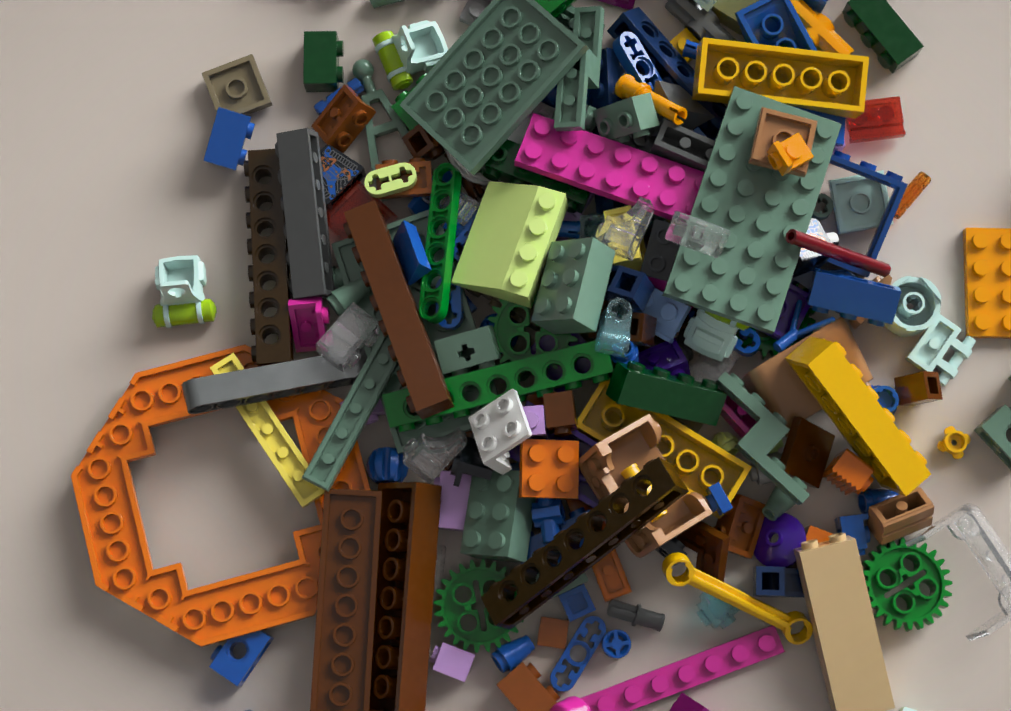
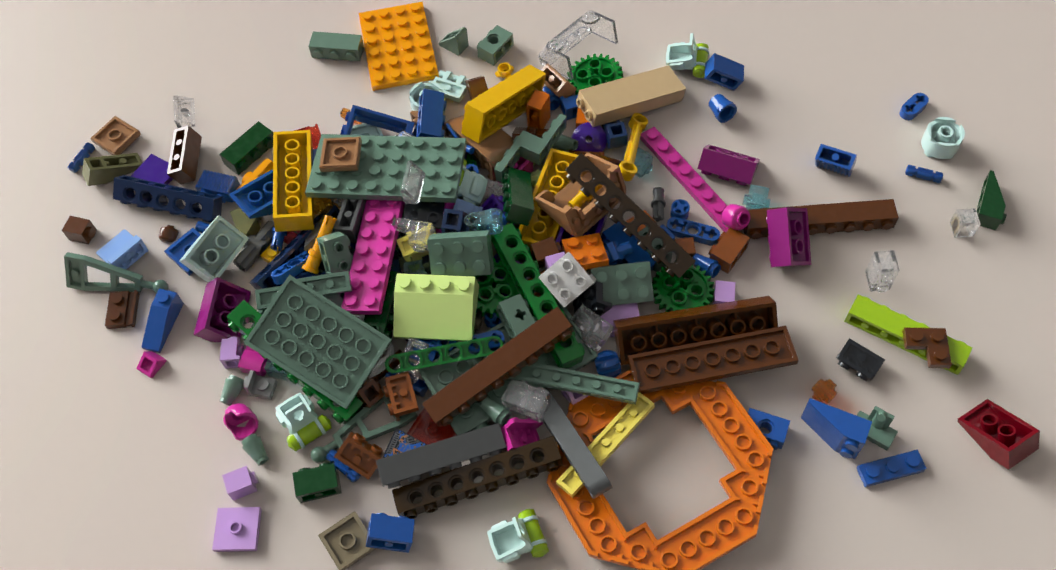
camera: 100 degrees left, 20 degrees down
(390, 173) = (400, 400): yellowish green beam -> none
(411, 252) = (455, 369): blue slope -> none
(717, 499) = (574, 153): blue plate -> none
(789, 154) = (350, 144): light orange bracket -> none
(837, 253) = (405, 125): dark red piece -> none

